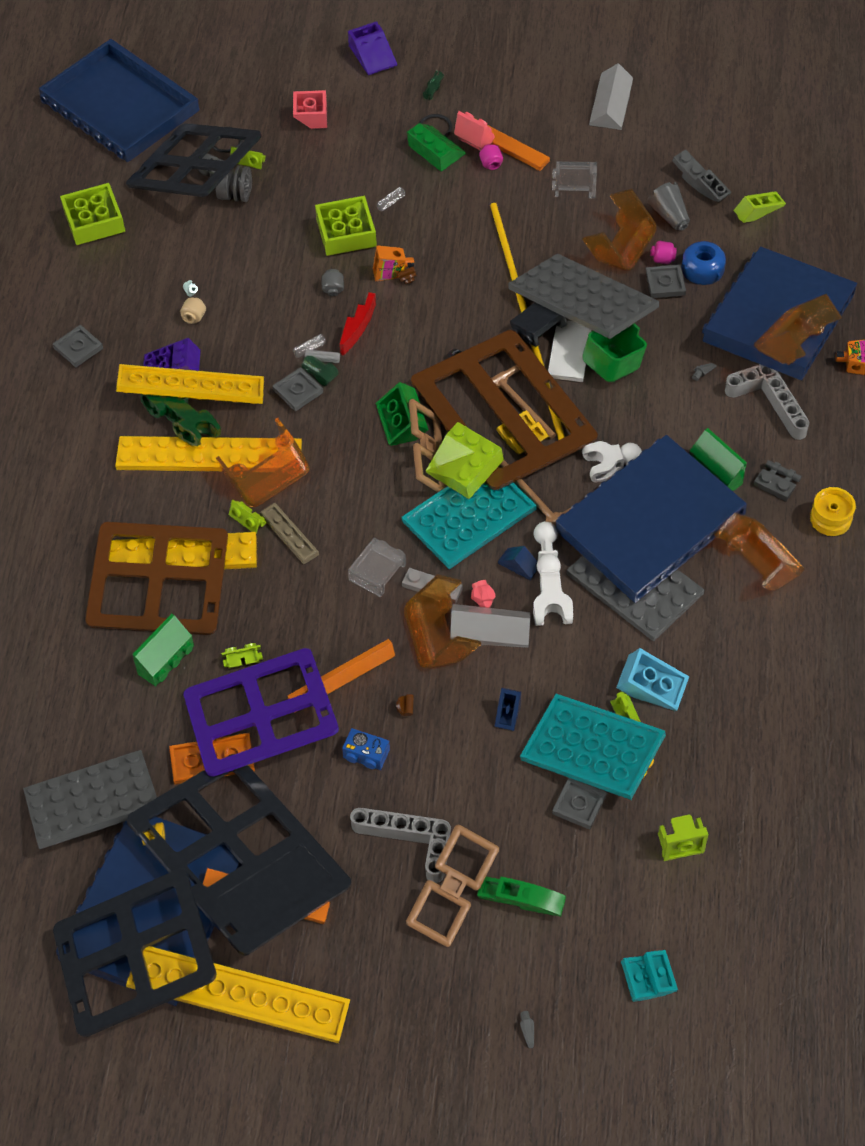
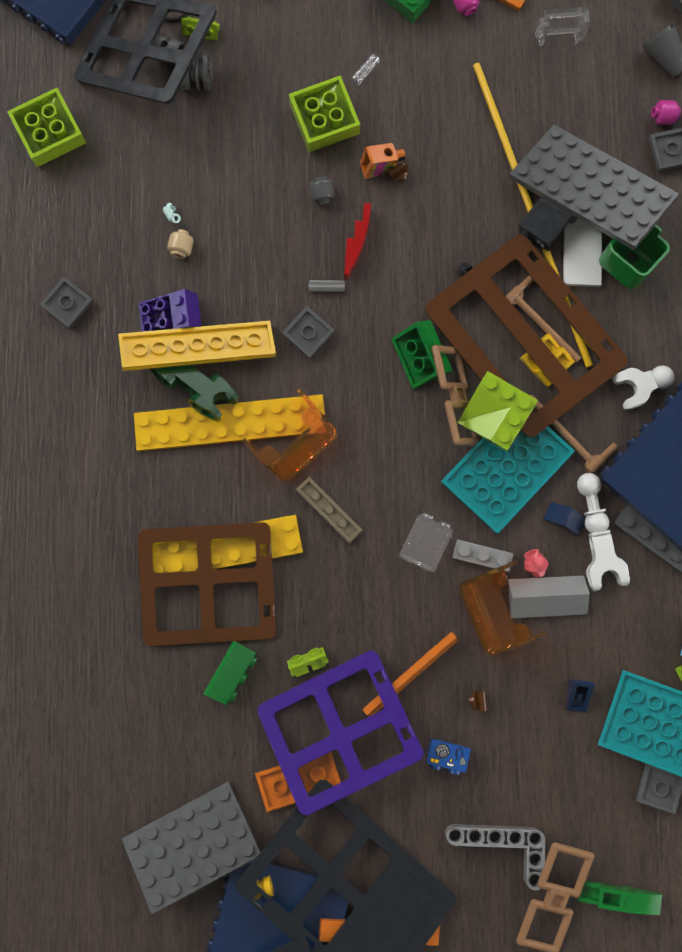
camera: 10 degrees left, 25 degrees up
(244, 516) = (275, 492): lime hinge -> none
(309, 345) = (310, 274): clear axle -> none
(323, 372) = (332, 308): clear green piece -> none
(633, 237) = (628, 95): clear orange windscreen -> none

